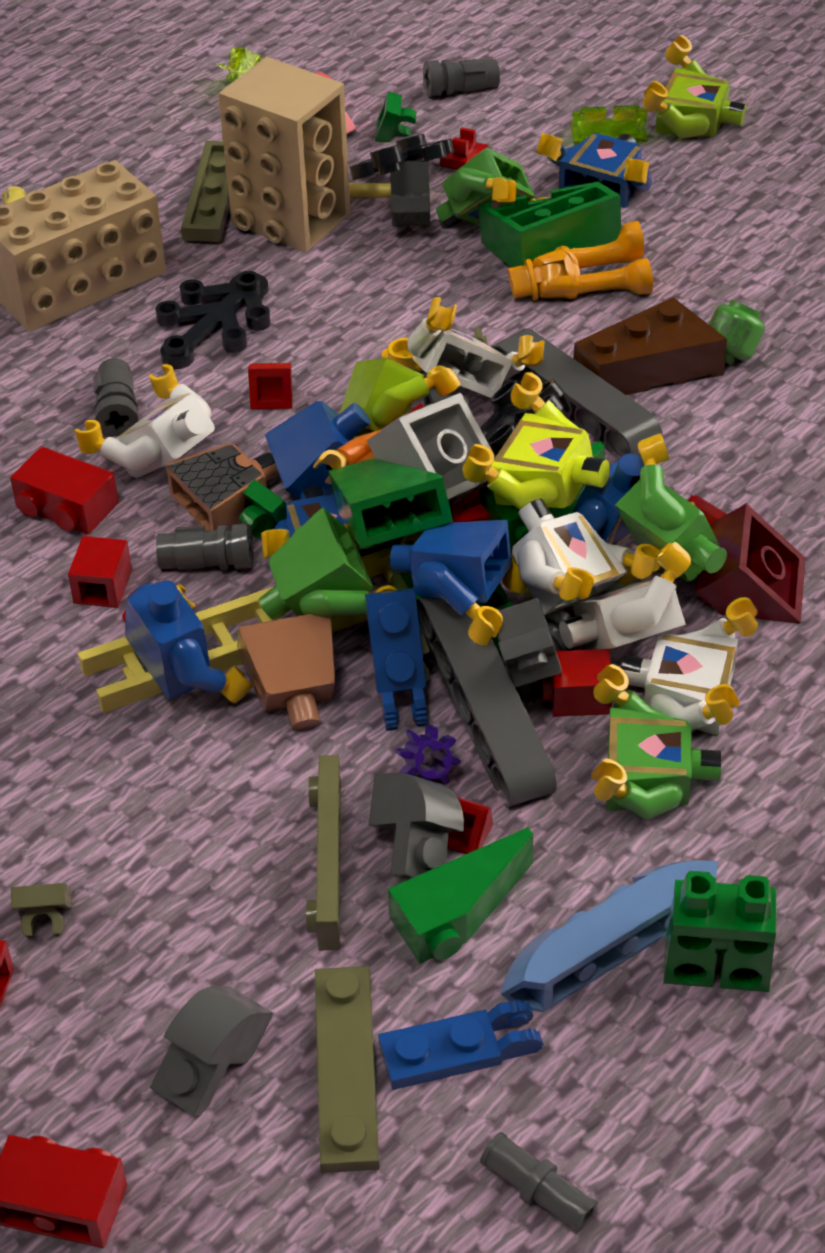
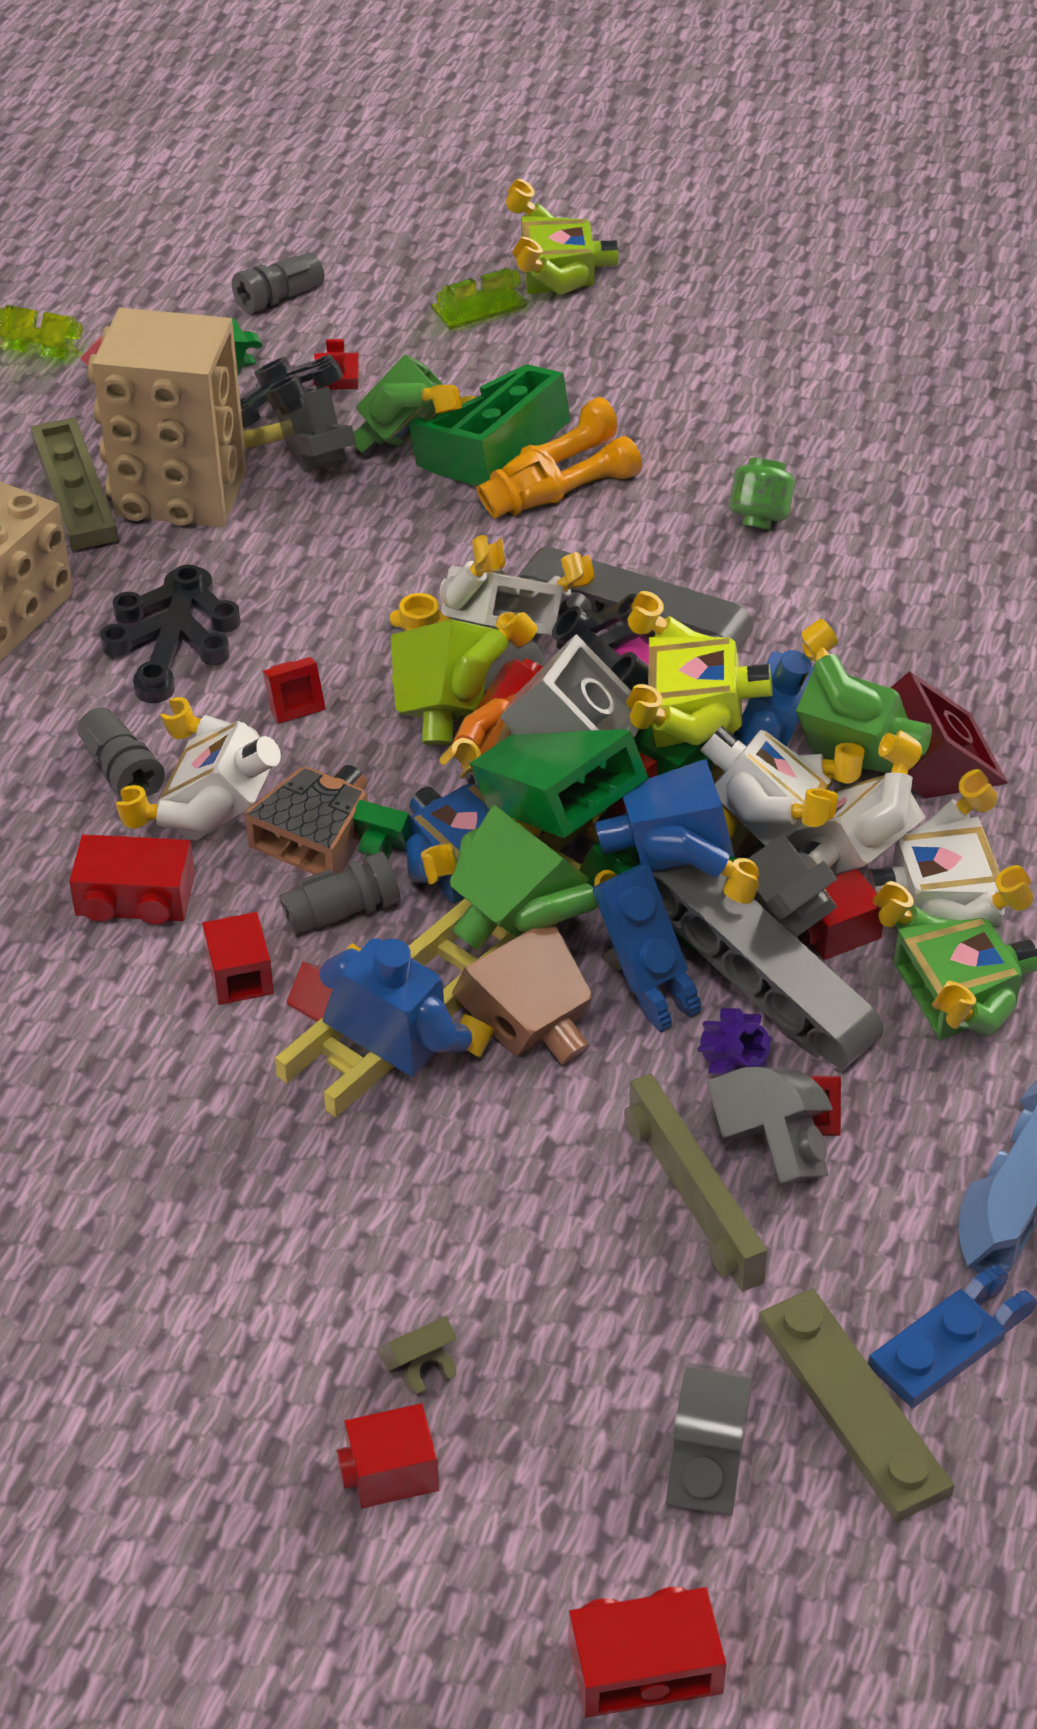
camera: 25 degrees left, 0 degrees up
(303, 439) = (401, 742): blue torso -> none
(453, 900) = (853, 1193): green slope -> none
(599, 159) = (503, 343): torso -> none
(654, 349) = (693, 531): reddish brown wedge -> none

